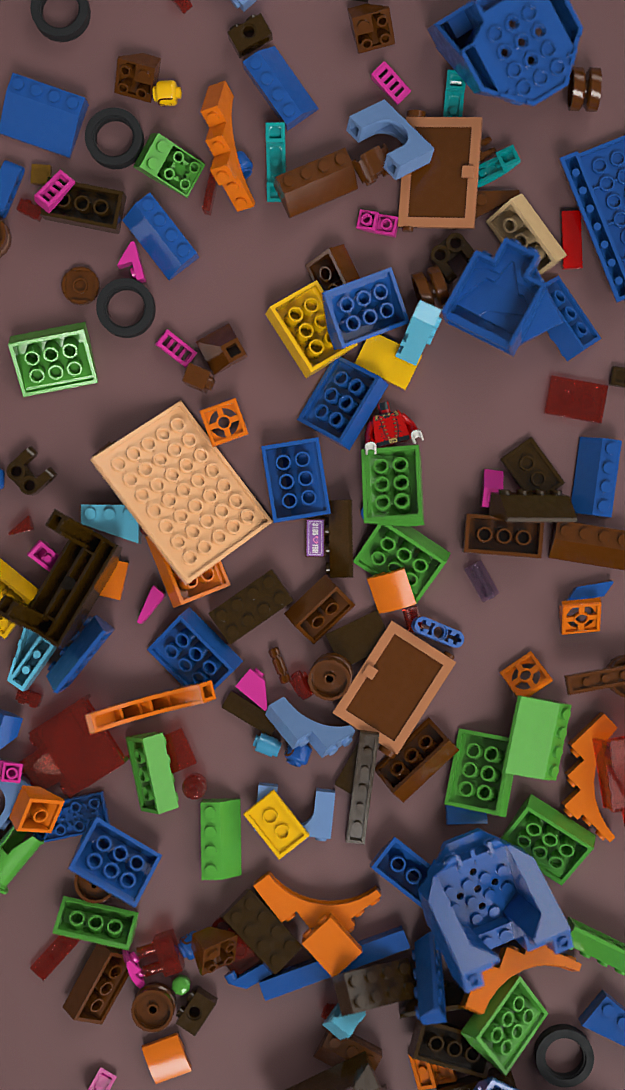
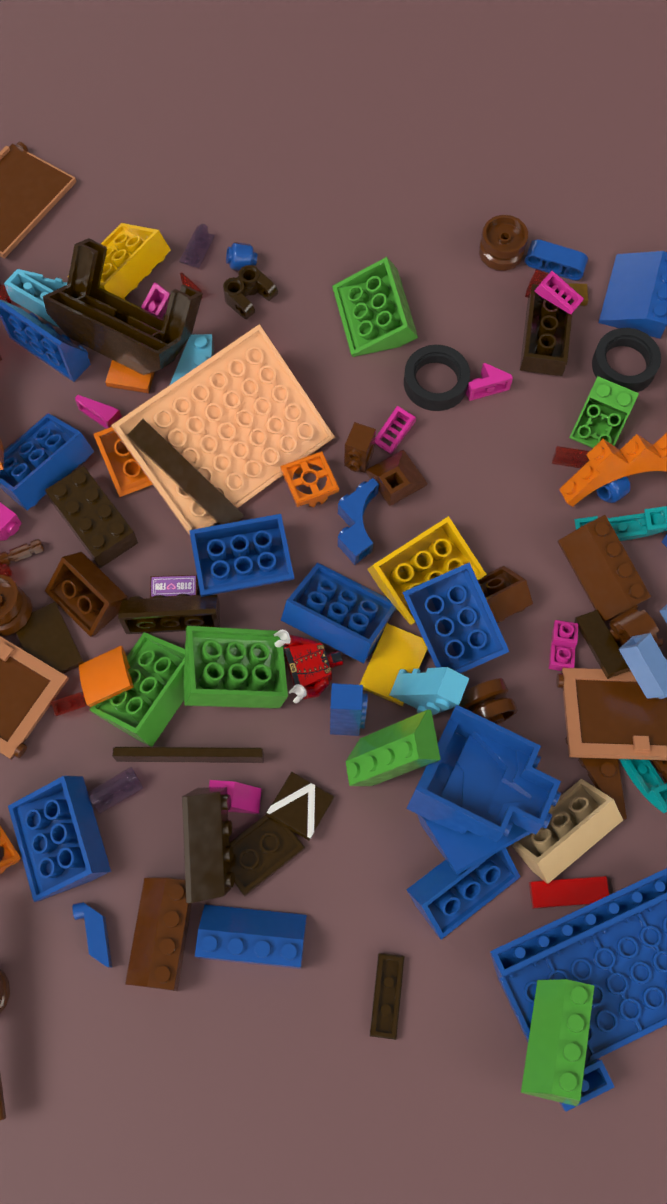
camera: 90 degrees right, 20 degrees down
(80, 286) = (458, 334): reddish brown tile -> none
(160, 236) = (522, 410): blue slope -> none
(225, 525) = (183, 474): none -> dark brown tile
(251, 387) = (351, 508): none -> blue arch
(378, 192) = (602, 644): none -> dark brown tile
(428, 397) = (347, 709): none -> blue wedge
(445, 631) = (50, 753): blue beam -> none
(449, 253) = (536, 730): dark brown piece -> none
(457, 523) = (188, 754): none -> dark brown tile
(467, 363) = (393, 751): none -> bright green slope
(497, 537) = (163, 812): reddish brown brick -> none
(500, 438) = (300, 806): none -> dark brown tile
(518, 622) = (58, 837): none -> blue slope
(576, 399) = (356, 908): clear red tile -> none
(595, 617) = (48, 921): orange piece -> none

